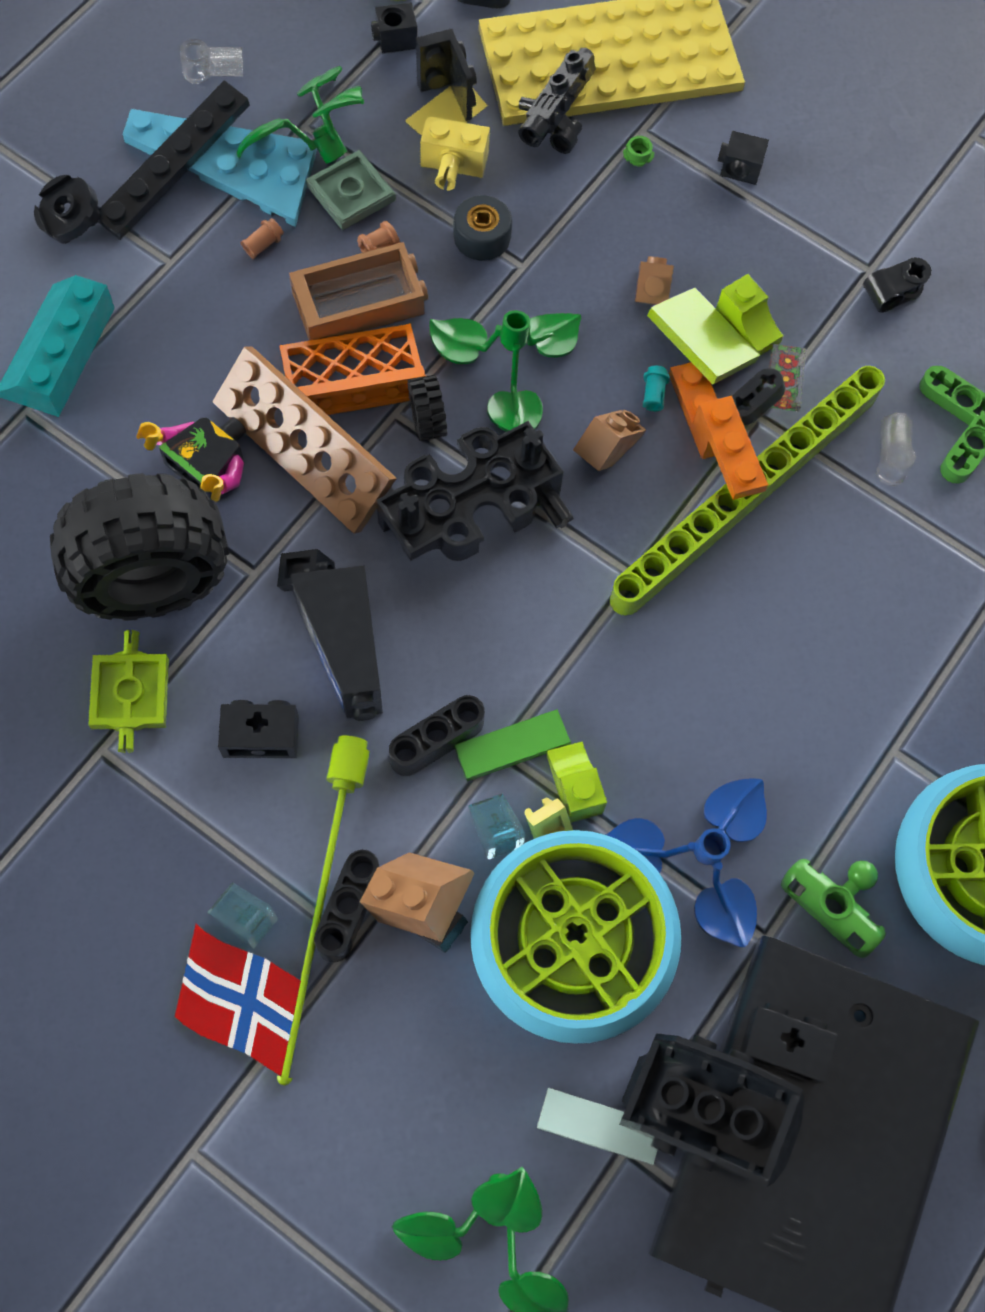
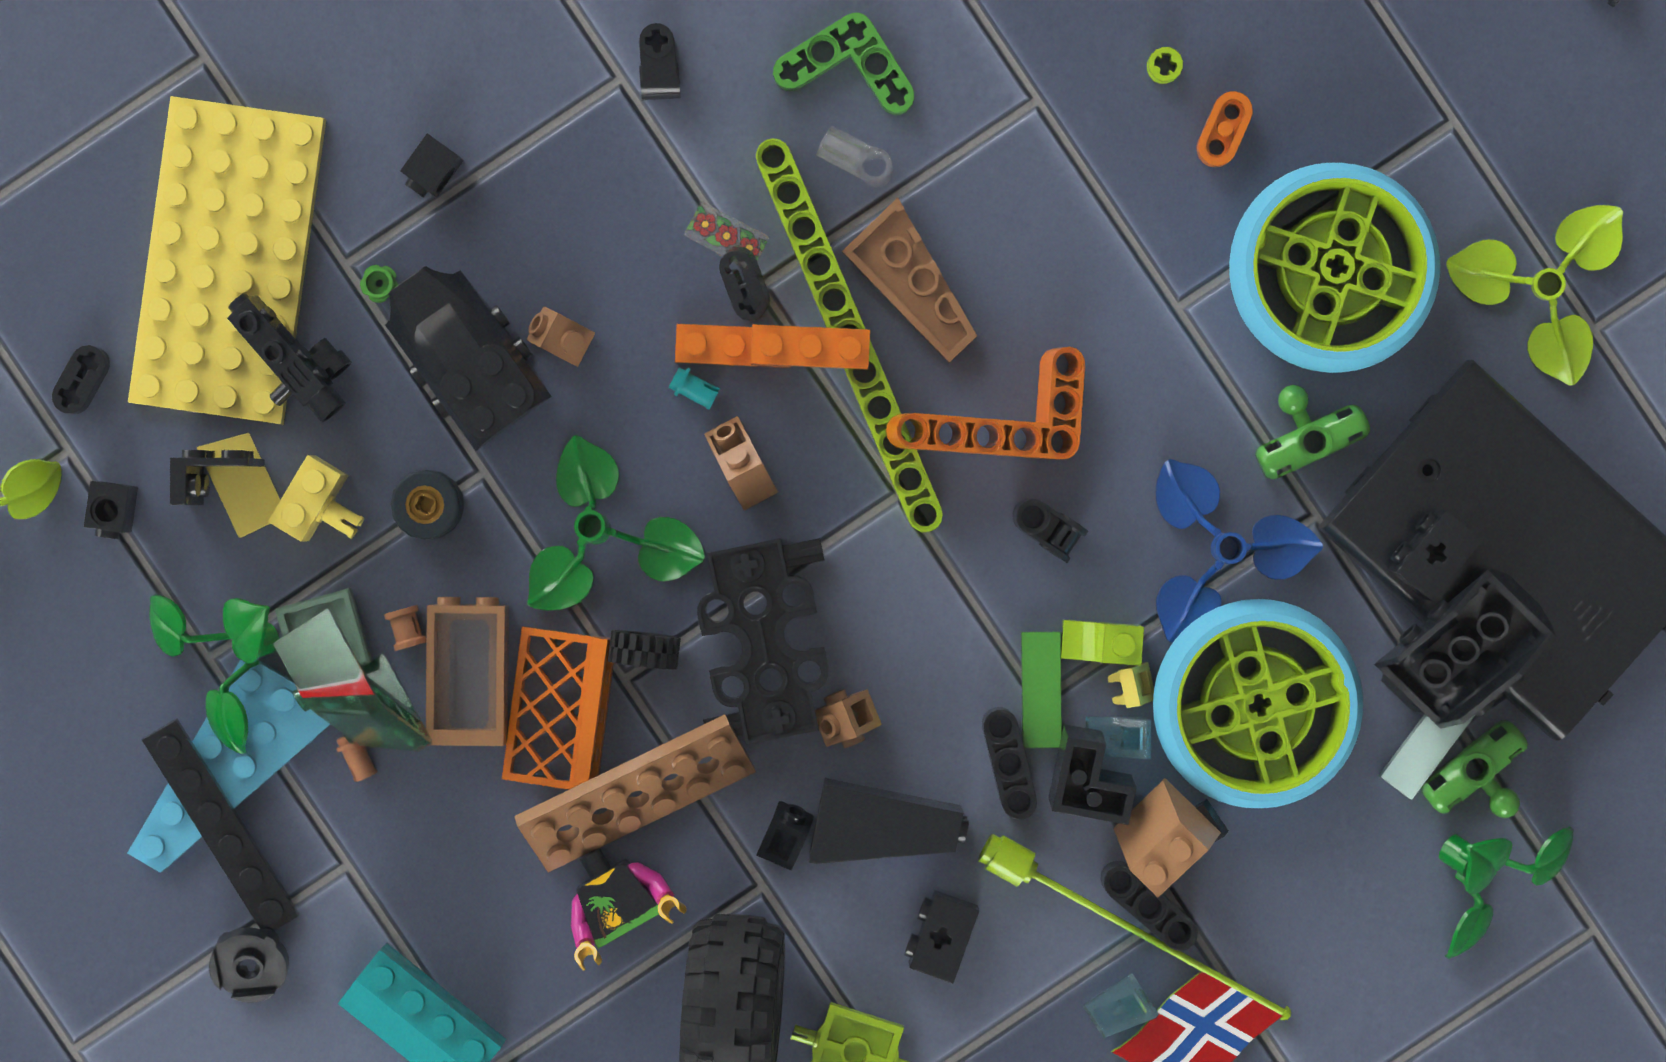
camera: 60 degrees left, 20 degrees up
(202, 61) = (92, 735): clear piece -> none
(312, 150) = (358, 701): none -> clear green windscreen
(427, 583) = (847, 718): none -> medium nougat brick
(439, 800) = (1082, 786): none -> black brick
(569, 1222) = (1496, 756): none -> bright green piece
(615, 210) = (464, 354): none -> black slope
(658, 704) = (1050, 529): none -> black piece
(703, 335) = (649, 310): tile -> none
(731, 625) = (1003, 431): none -> orange beam
(748, 312) = (644, 248): lime arch -> none
(820, 516) = (903, 271): none -> medium nougat wing

